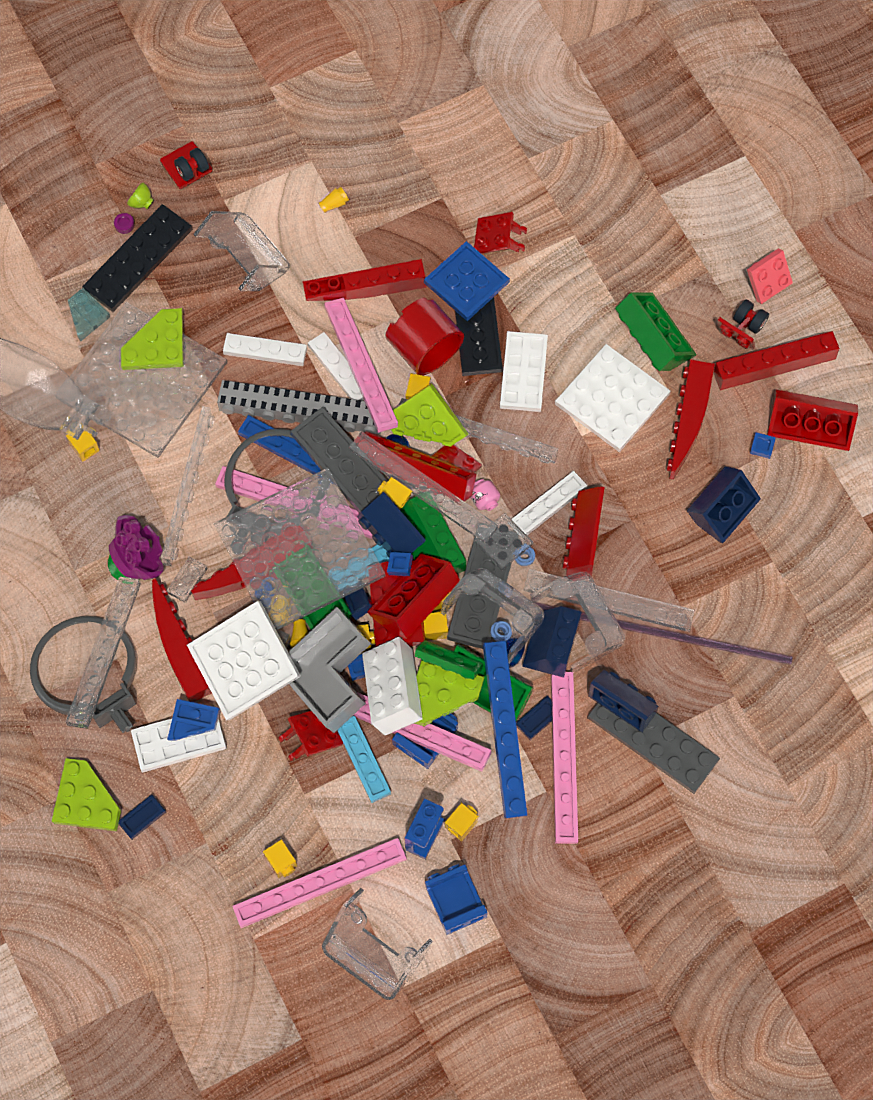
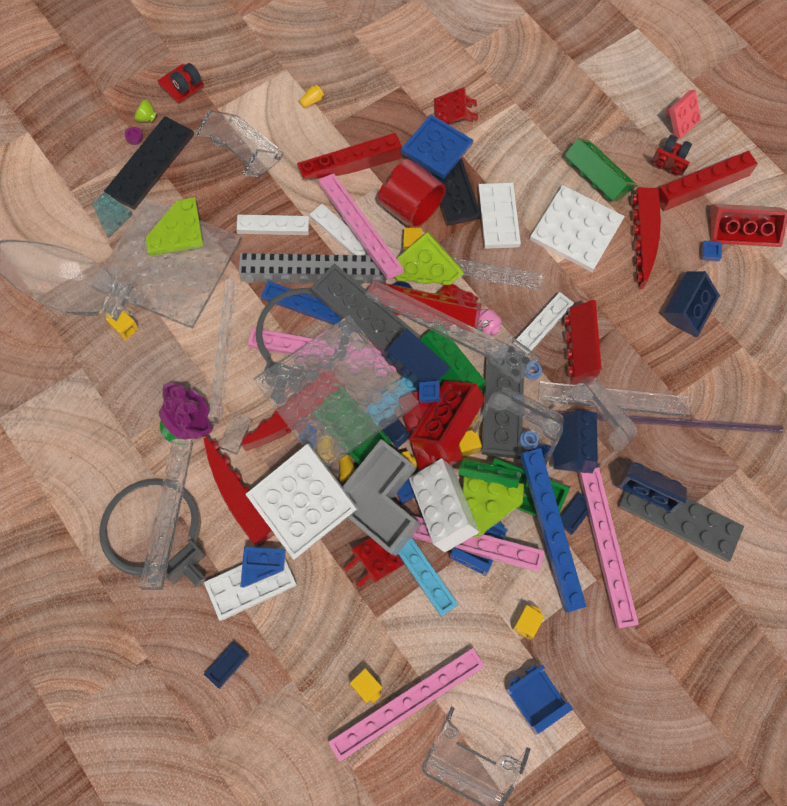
camera: 15 degrees left, 0 degrees up
(84, 799) = (168, 657): lime plate -> none
(395, 491) = (414, 326): yellow brick -> none
(424, 829) = (499, 636): blue panel -> none

